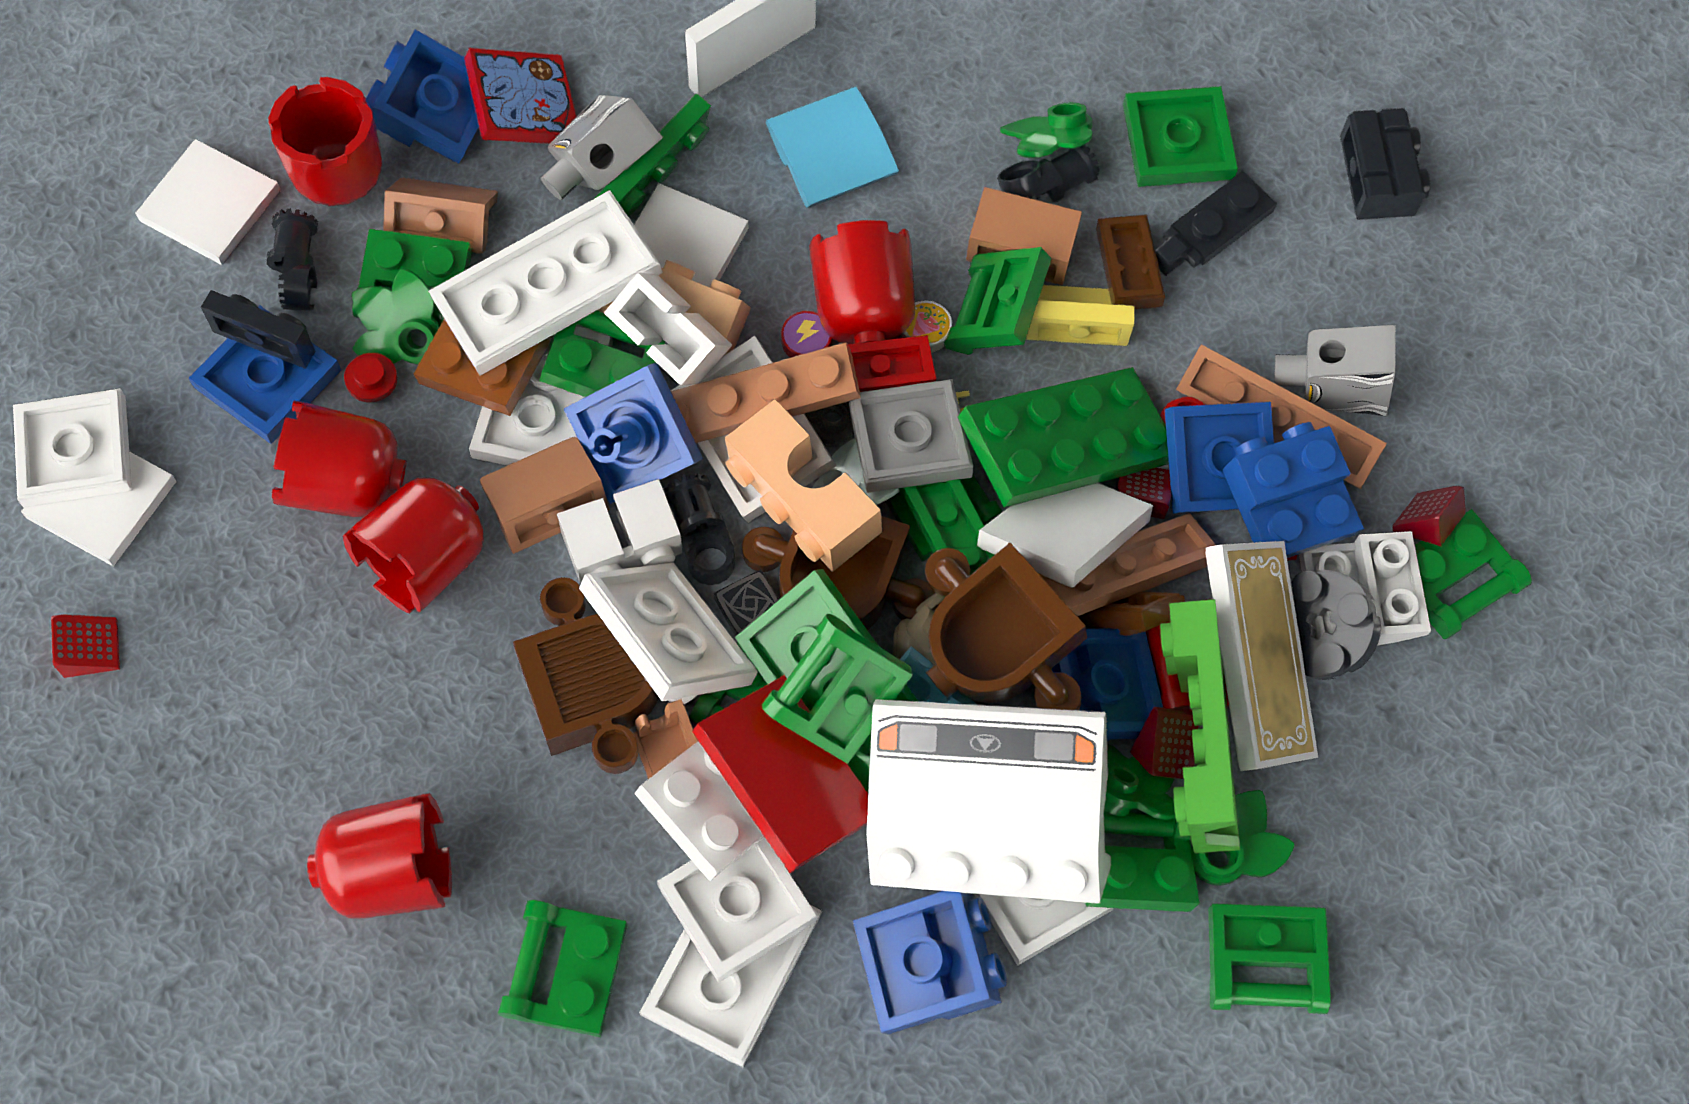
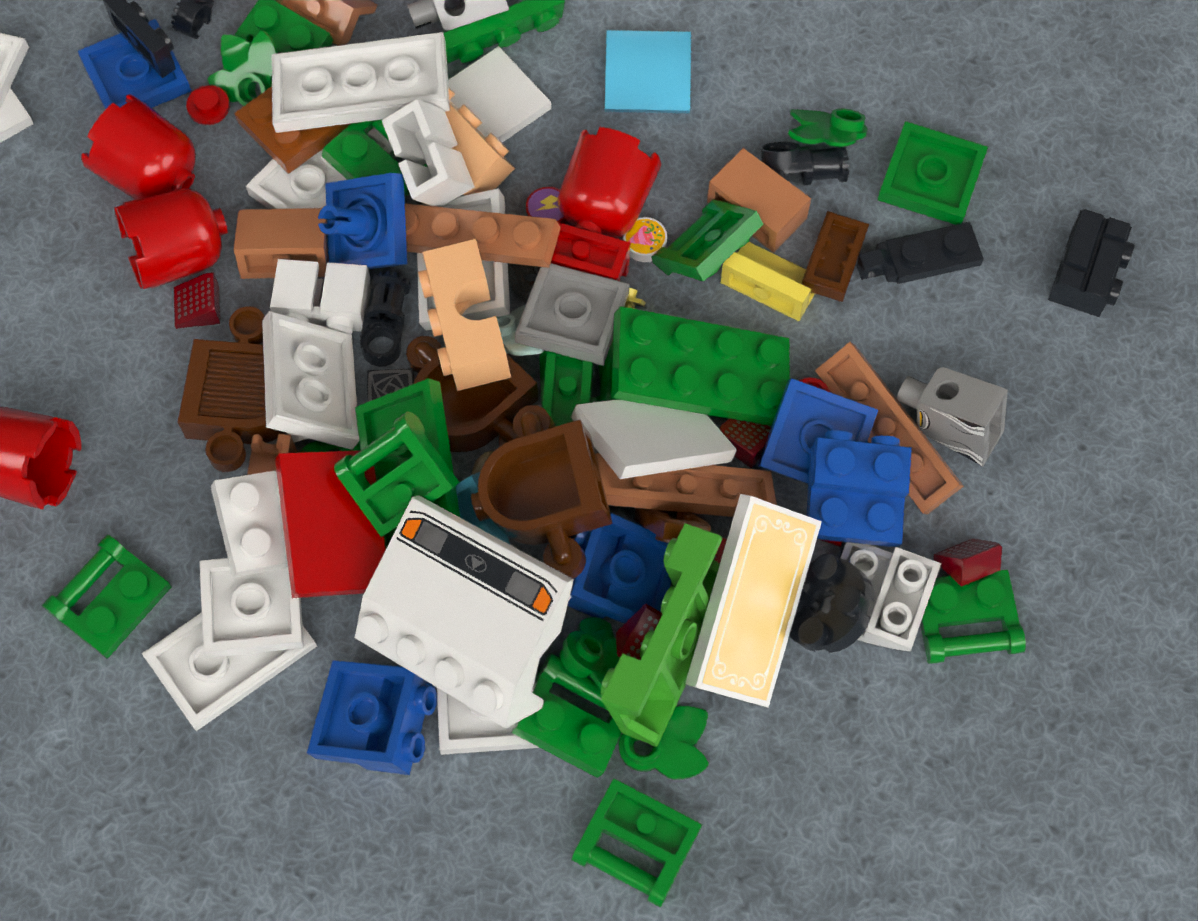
camera: 30 degrees right, 0 degrees up
(481, 600) = (197, 302): none -> dark red slope

